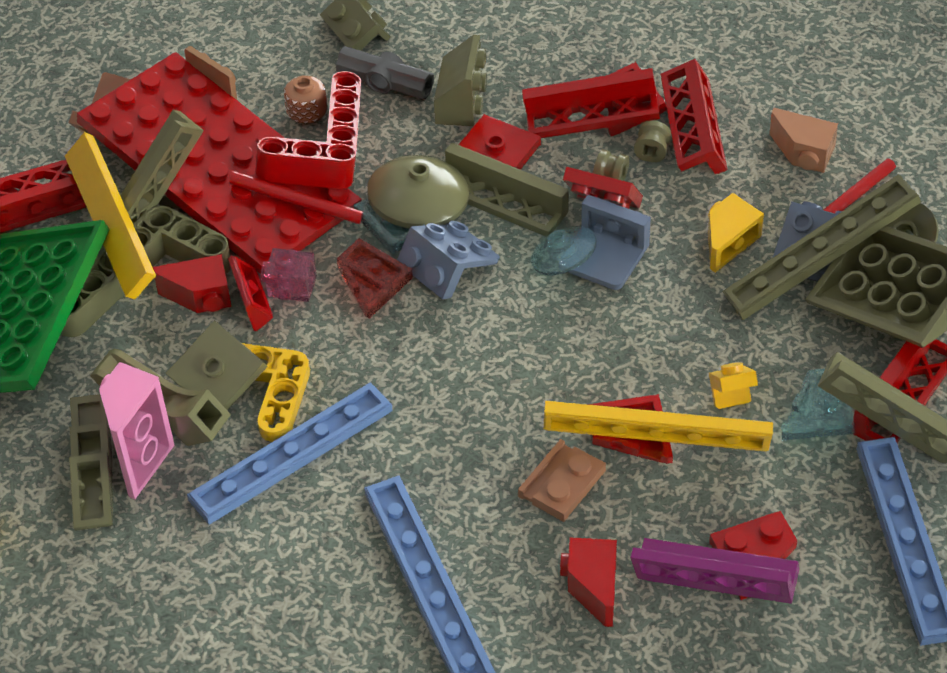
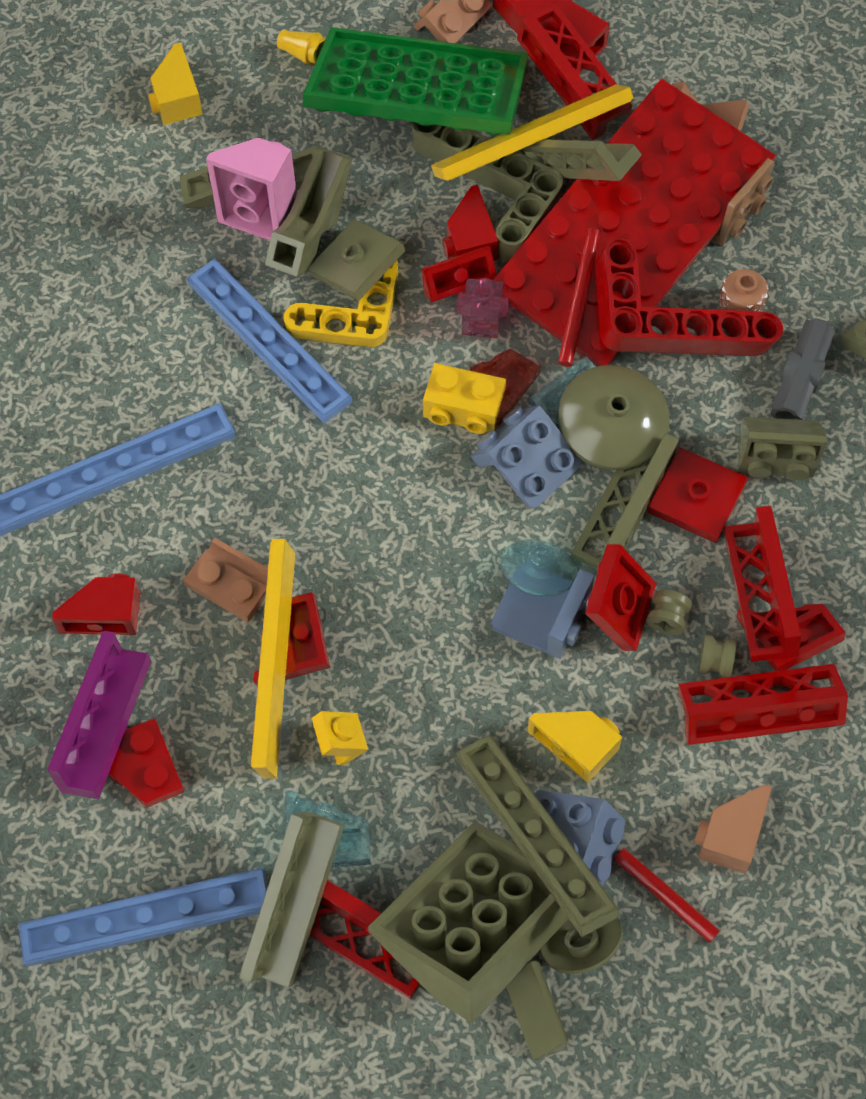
camera: 85 degrees right, 15 degrees up
(387, 291) = (463, 398): none -> yellow bracket

